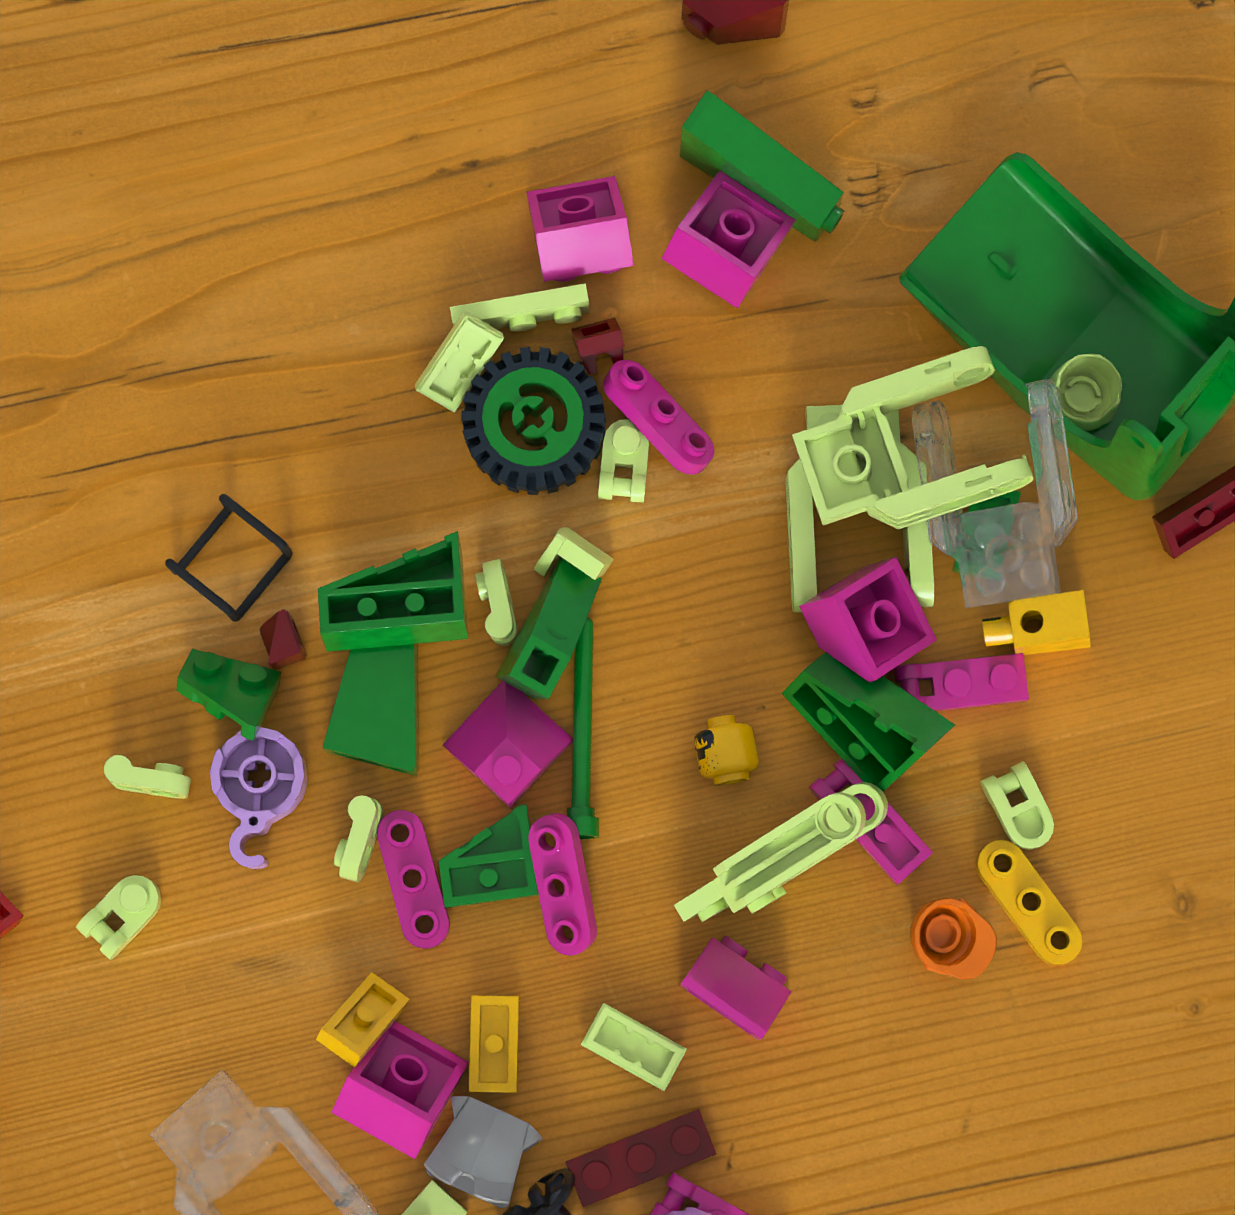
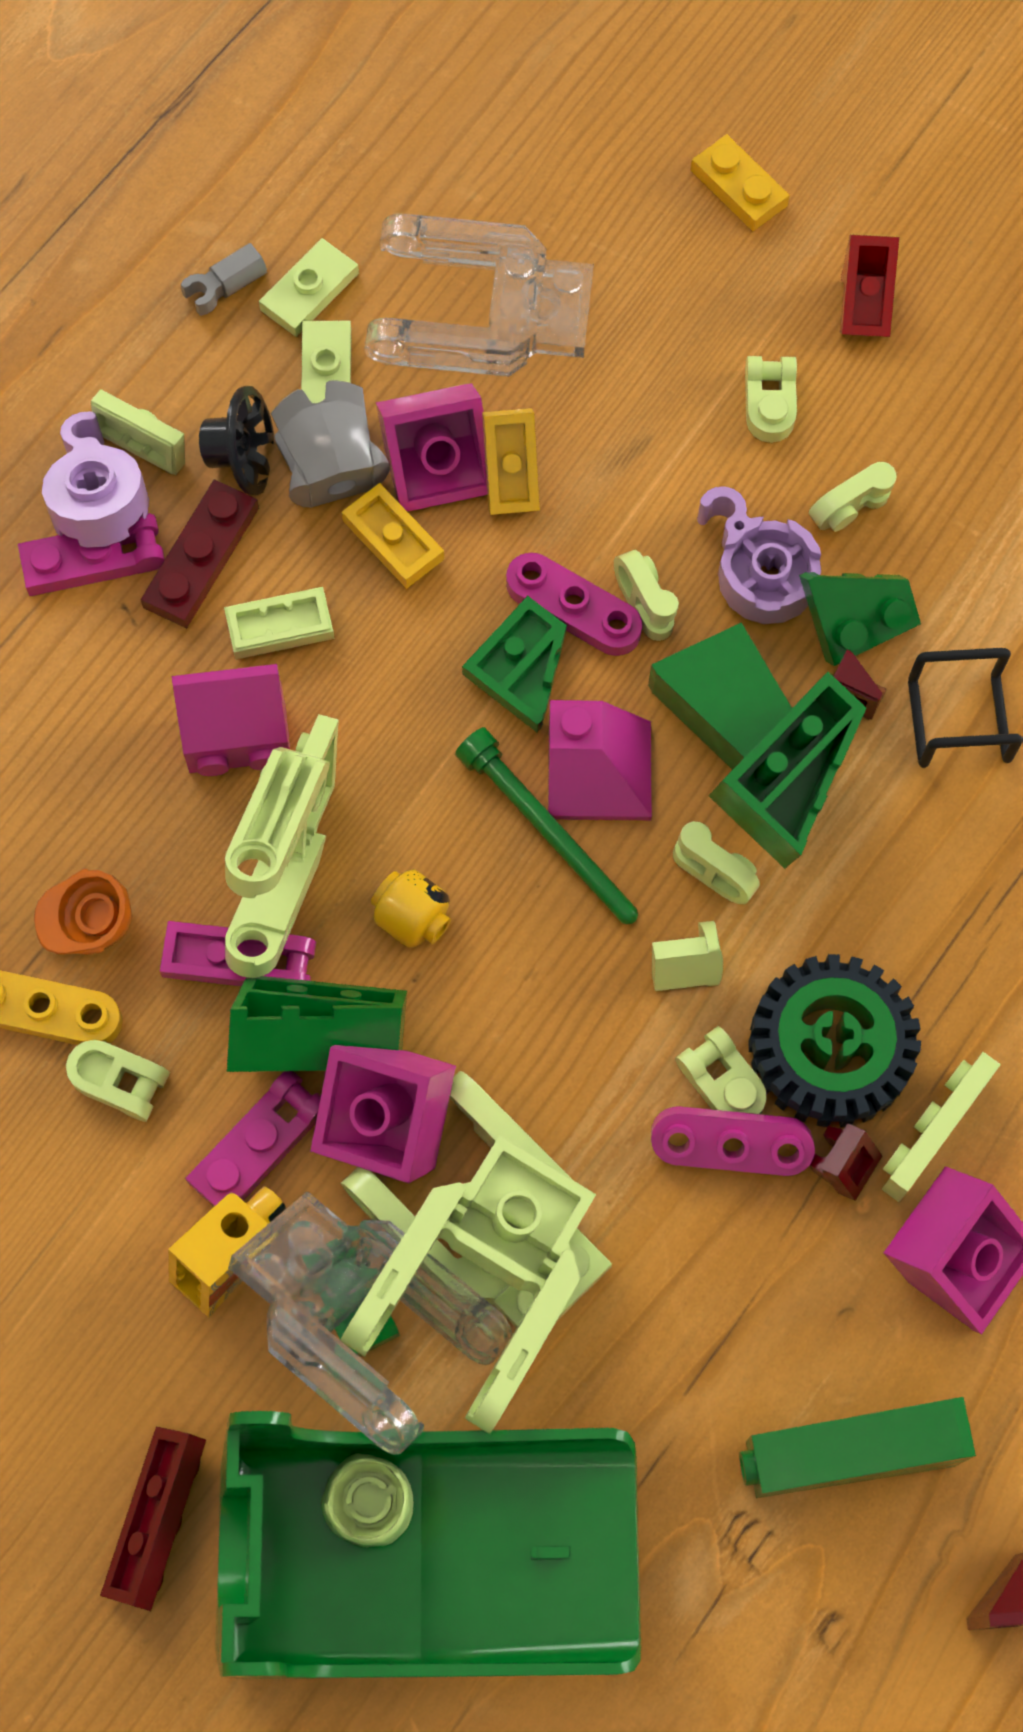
camera: 135 degrees right, 10 degrees down
(458, 361) = (946, 1031): yellowish green plate -> none
(550, 632) = (647, 869): green slope -> none
(568, 865) = (450, 690): dark pink plate -> none
(727, 239) = (824, 1356): dark pink slope -> none

